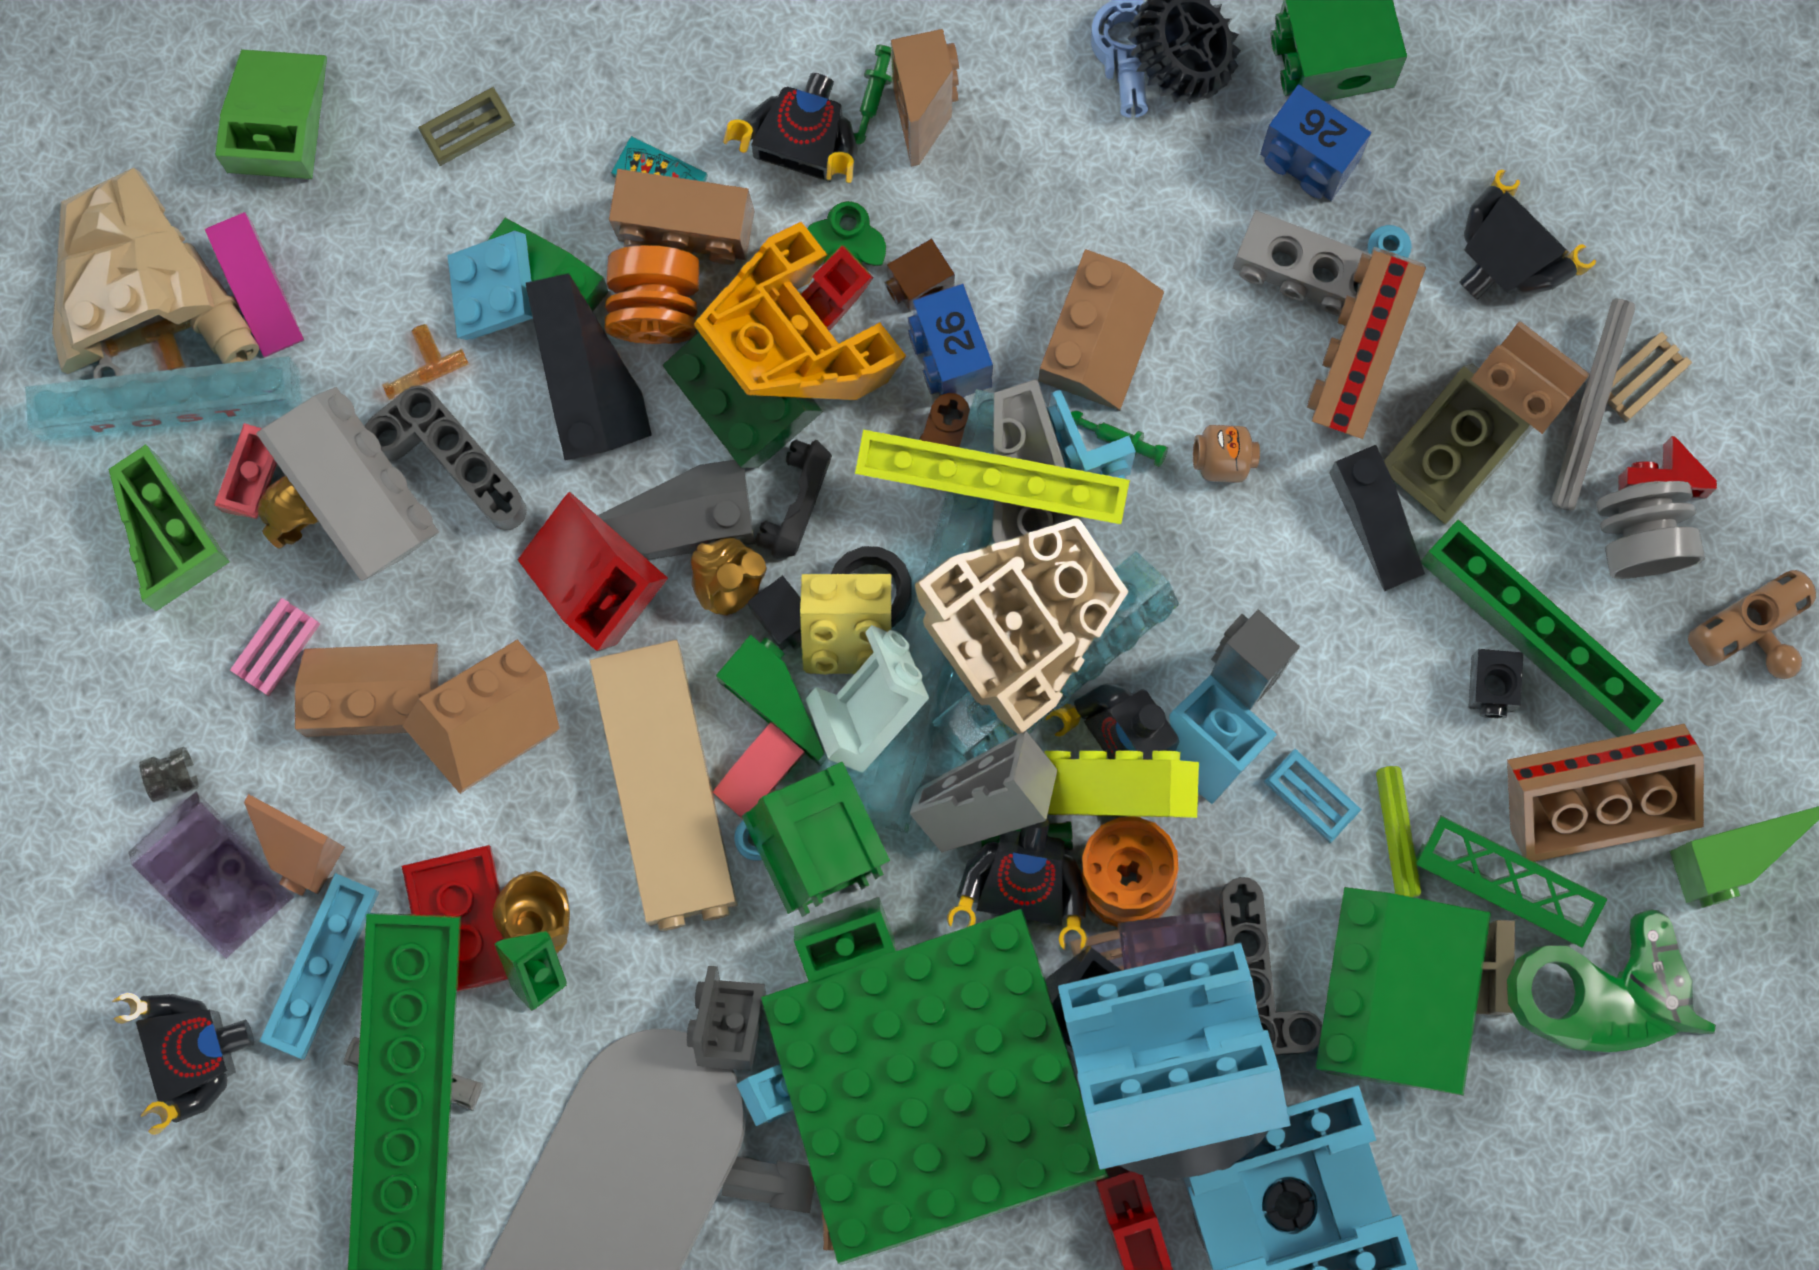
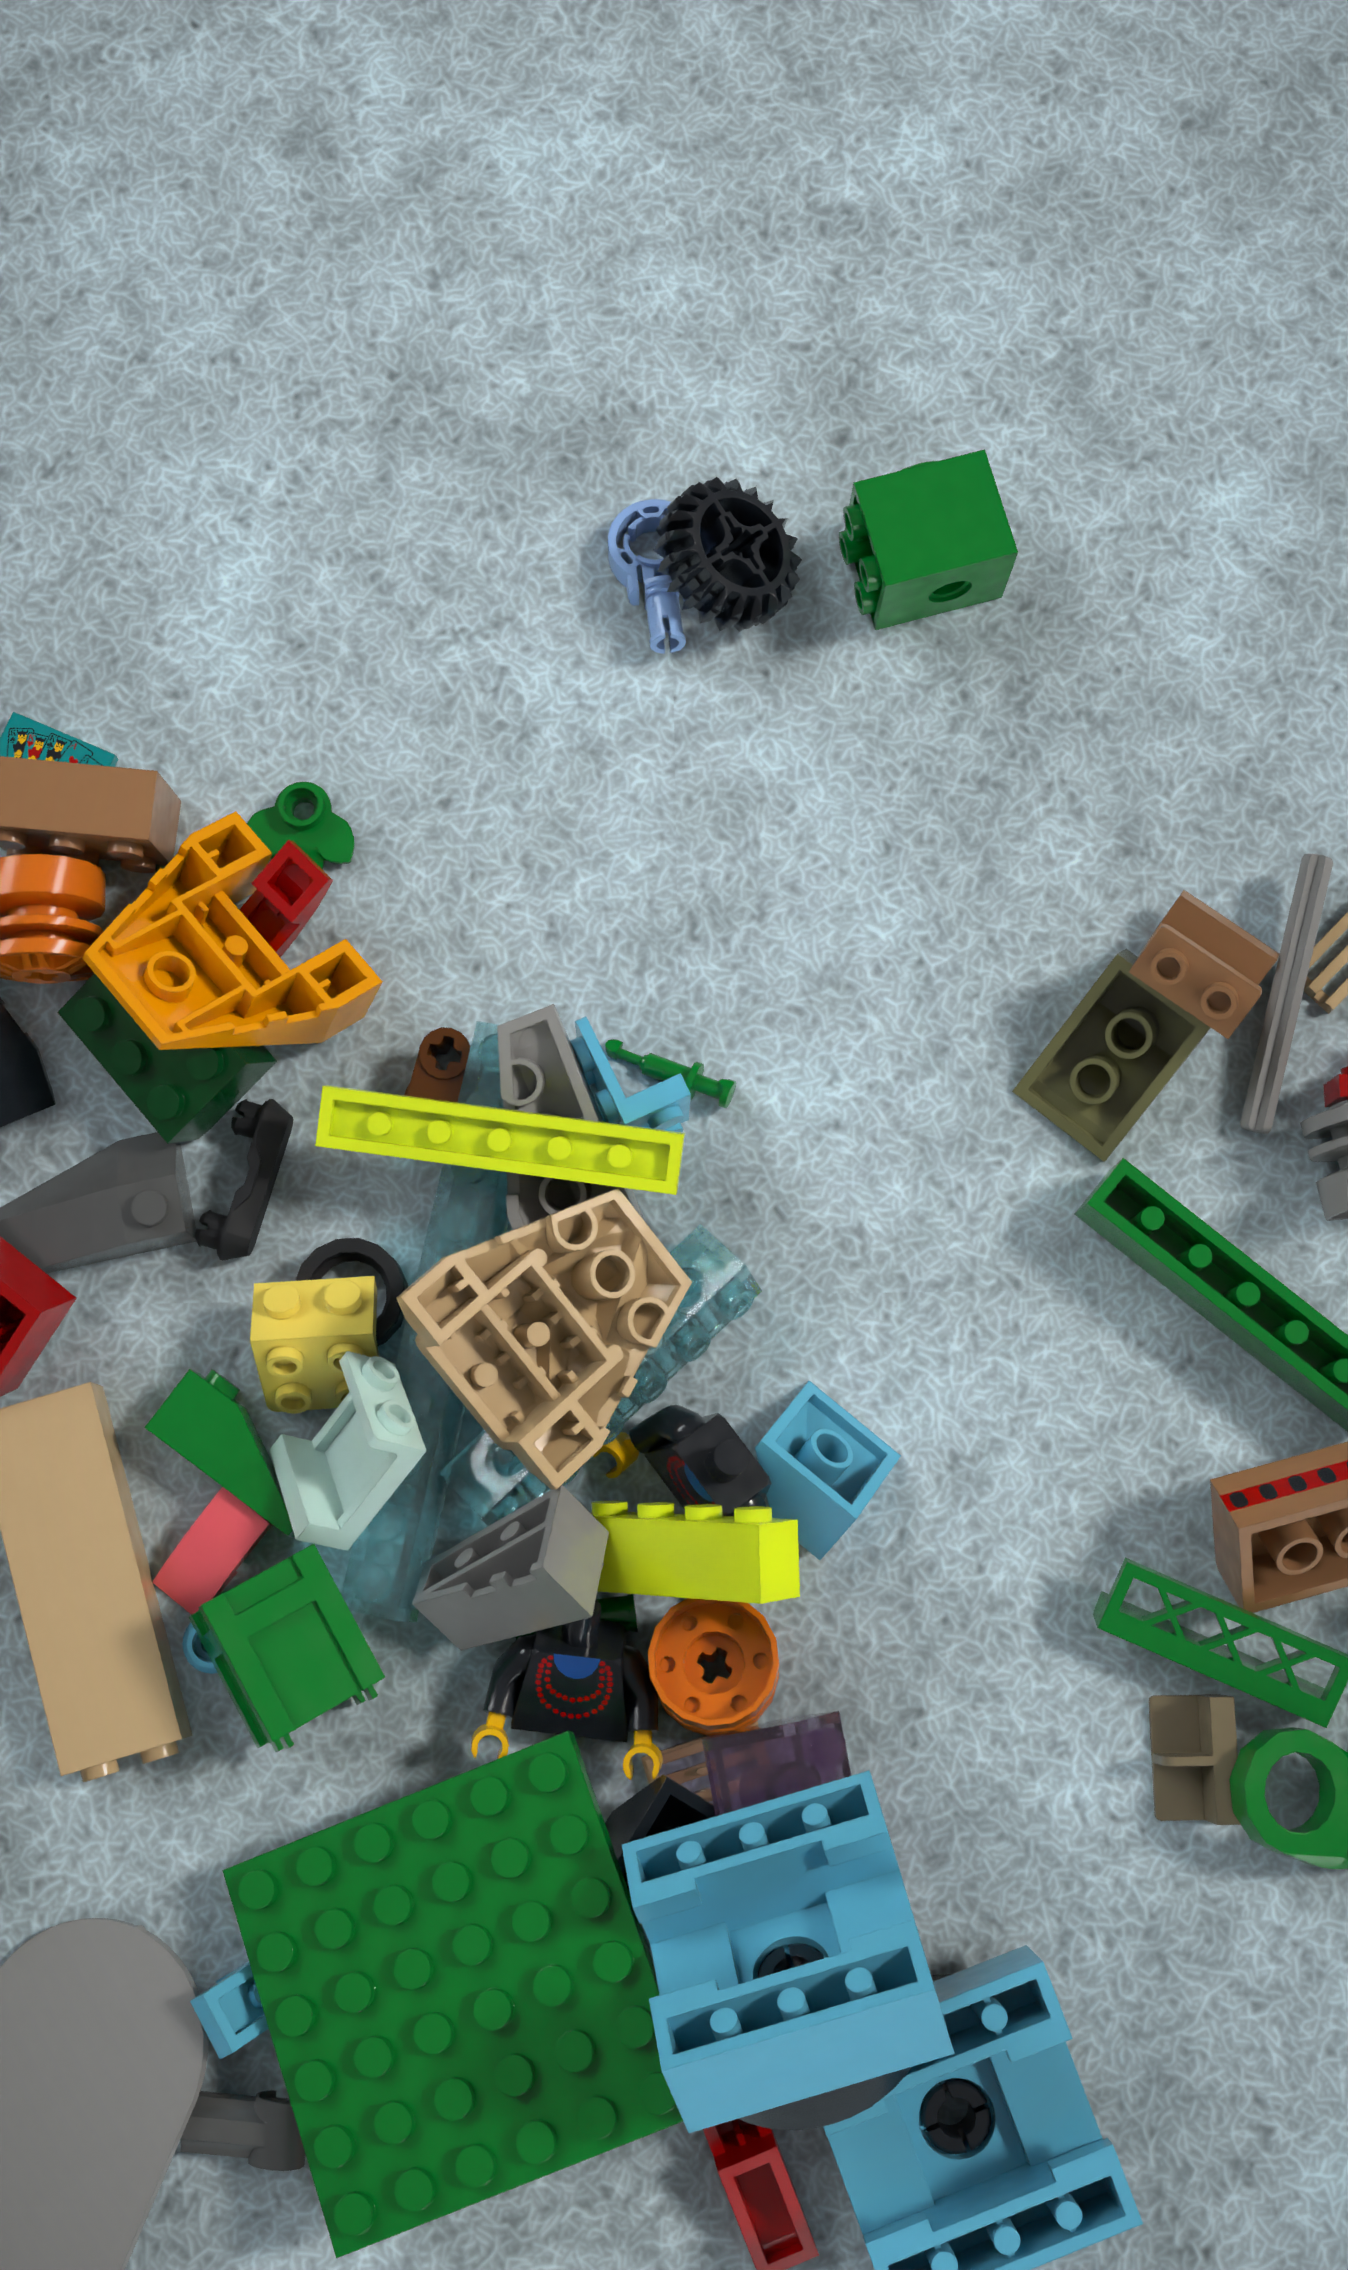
camera: 10 degrees left, 0 degrees up
(726, 575) = (154, 1290): pearl gold hair -> none
(726, 1022) = (175, 1908): dark grey bracket -> none
(779, 613) = (224, 1333): black brick -> none
(800, 131) = (231, 694): black torso -> none
(844, 939) = (333, 1781): green brick -> none
(874, 89) = (330, 635): green piece -> none
(918, 274) = (397, 874): reddish brown brick -> none
(924, 88) = (390, 626): medium nougat slope -> none
(951, 342) = (438, 950): blue brick -> none
(1101, 331) = (639, 933): medium nougat slope -> none
(1225, 453) = (811, 1086): medium nougat head -> none
(1252, 657) = (864, 1366): dark grey brick -> none
(1260, 967) = (894, 1779): dark grey beam -> none
(1308, 251) = (958, 830): light grey brick -> none
(1314, 144) = (903, 673): blue brick -> none
(1324, 830) = (992, 1570): medium azure tile -> none
(1367, 343) = (990, 929): medium nougat brick -> none
(1377, 516) = (1016, 1157): black slope -> none
(1394, 233) = (1001, 816): medium azure plate -> none
(1398, 831) = (1069, 1580): lime axle -> none
(1403, 991) = (1092, 1807): green slope -> none
(1506, 666) = (1199, 1348): black brick -> none
(1514, 246) = (1170, 793): black torso -> none

